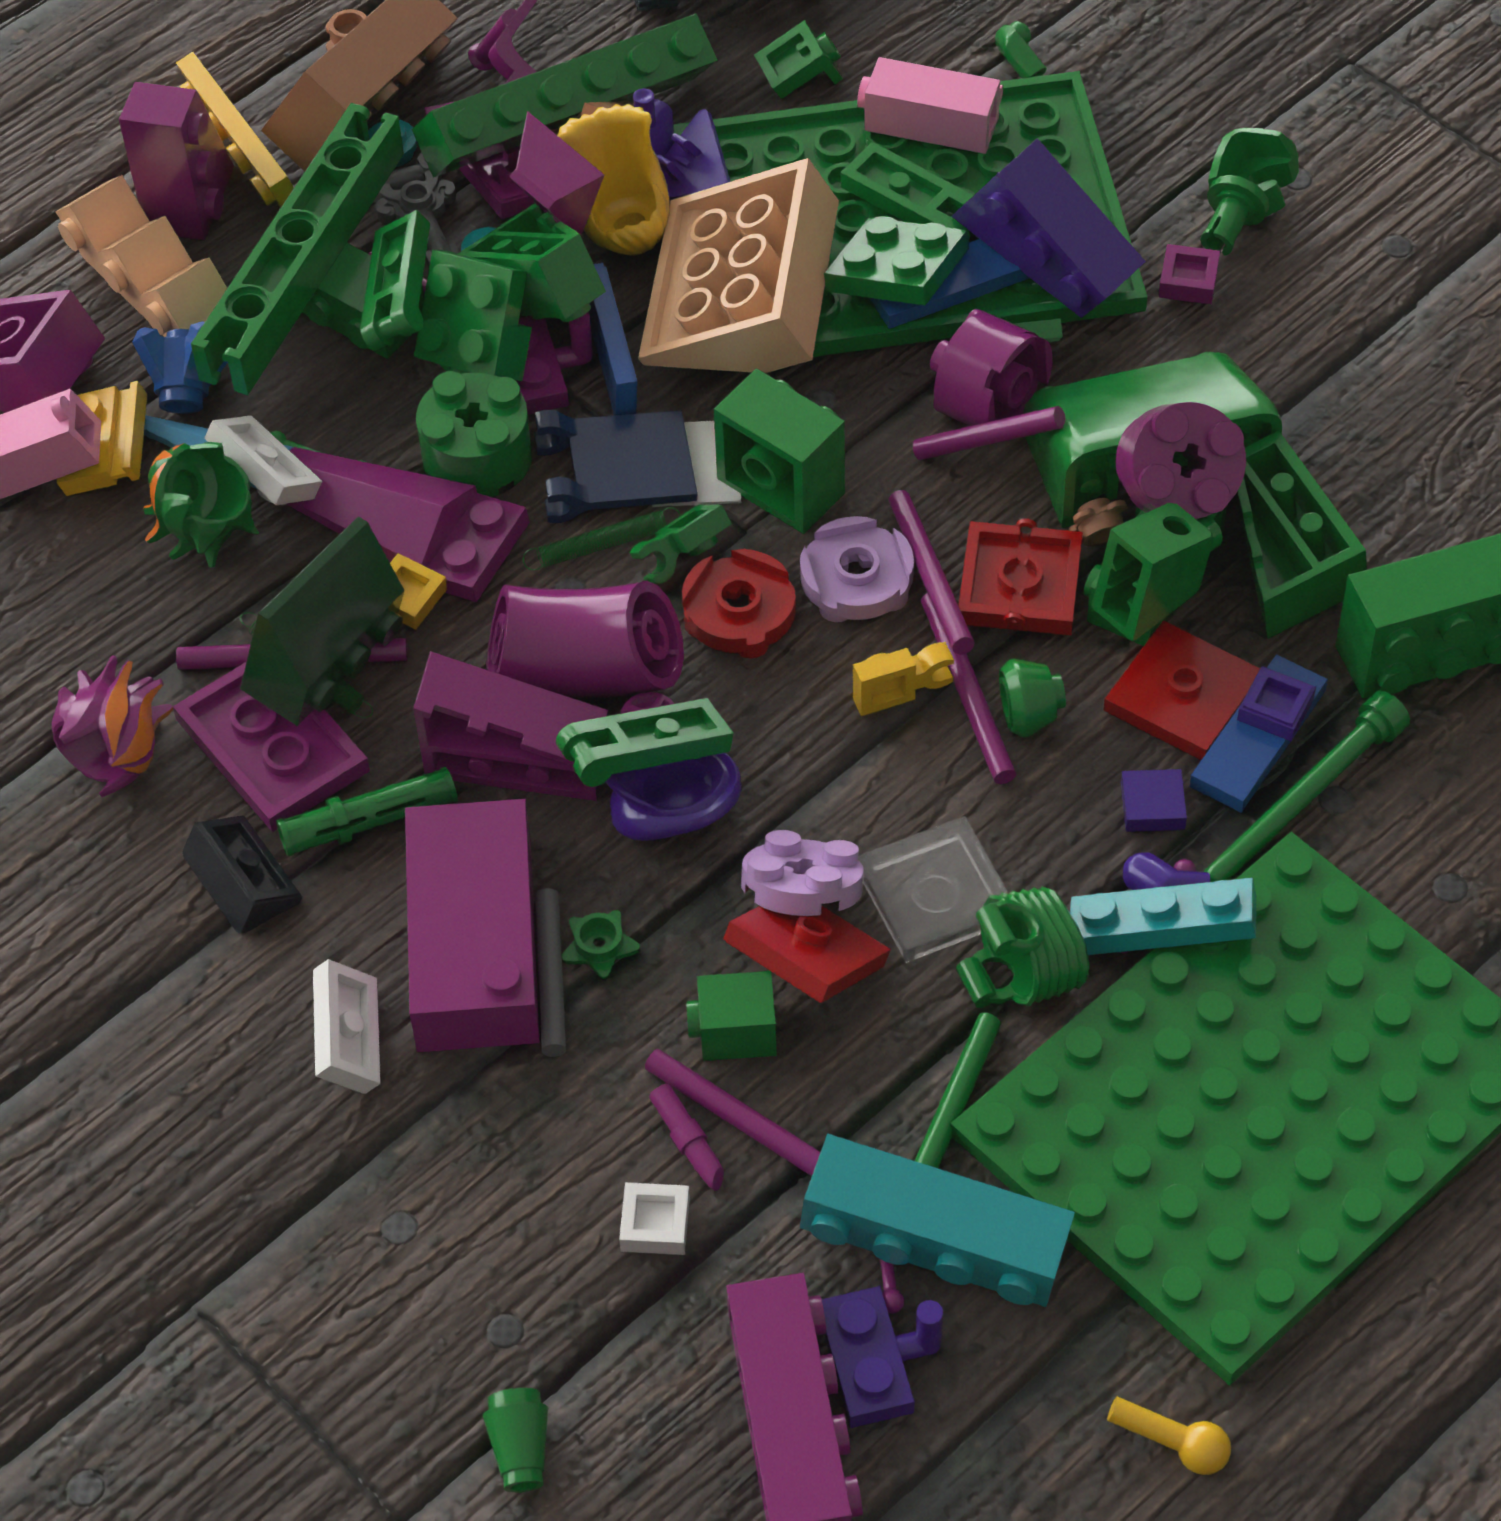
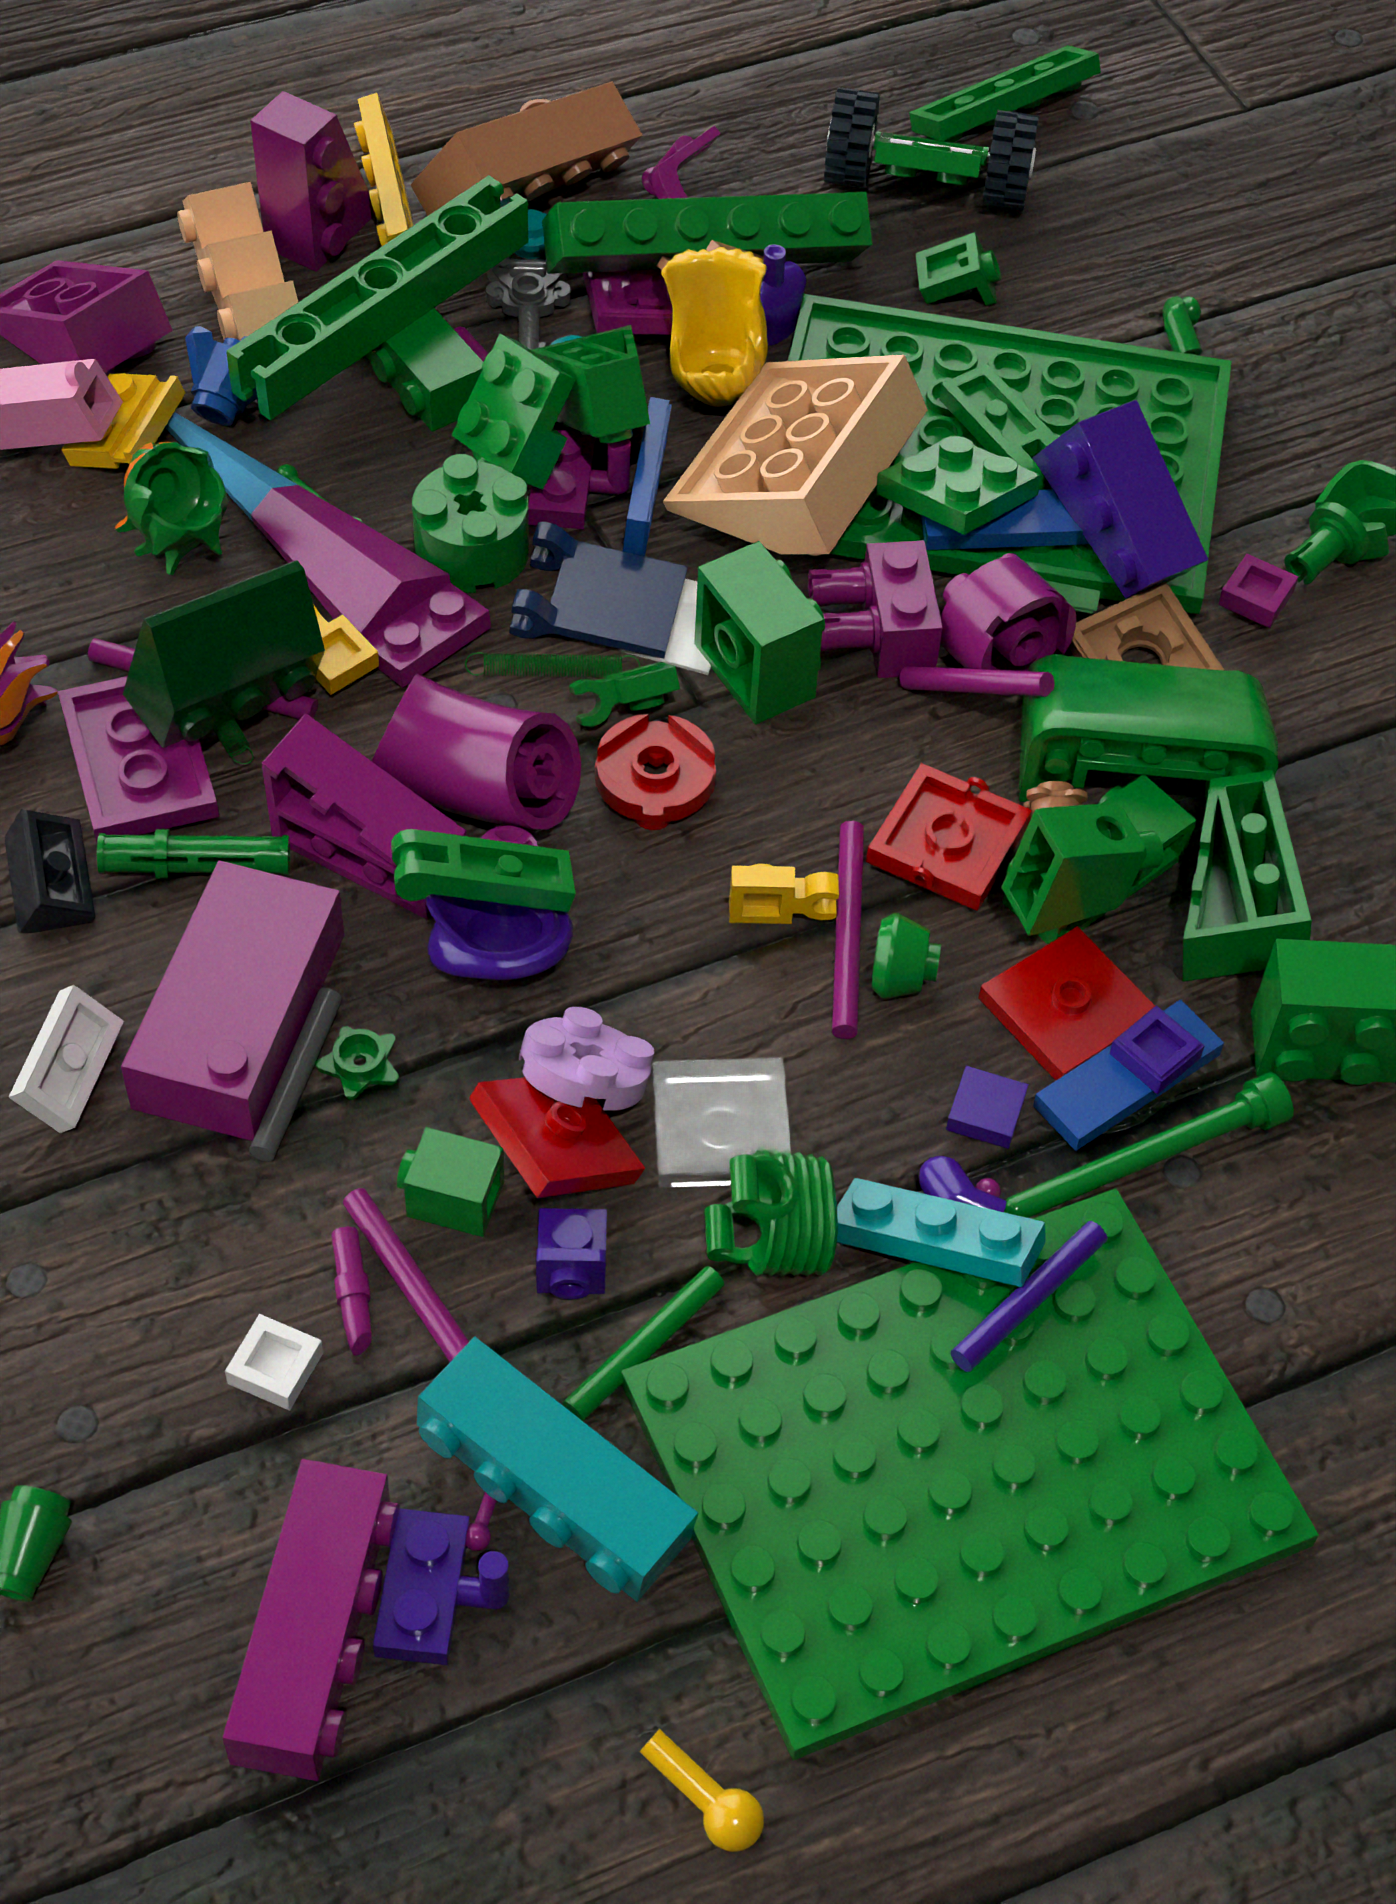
camera: 15 degrees right, 0 degrees up
(266, 461) = (253, 484): white plate -> none
(395, 281) = (454, 355): green plate -> none
(556, 175) = (649, 300): magenta slope -> none
(694, 159) = (807, 331): dark purple piece -> none
(850, 595) = (784, 802): lavender plate -> none
(861, 1041) = (571, 1252): none -> dark purple bracket
(885, 384) = (899, 606): none -> magenta brick
(930, 104) = (1063, 347): bright pink brick -> none
(931, 573) = (859, 802): magenta bar -> none
(1111, 331) = (1145, 620): none -> medium nougat piece
(1208, 442) = (1185, 757): magenta brick -> none
(1262, 947) = (1028, 1298): none -> dark purple bar

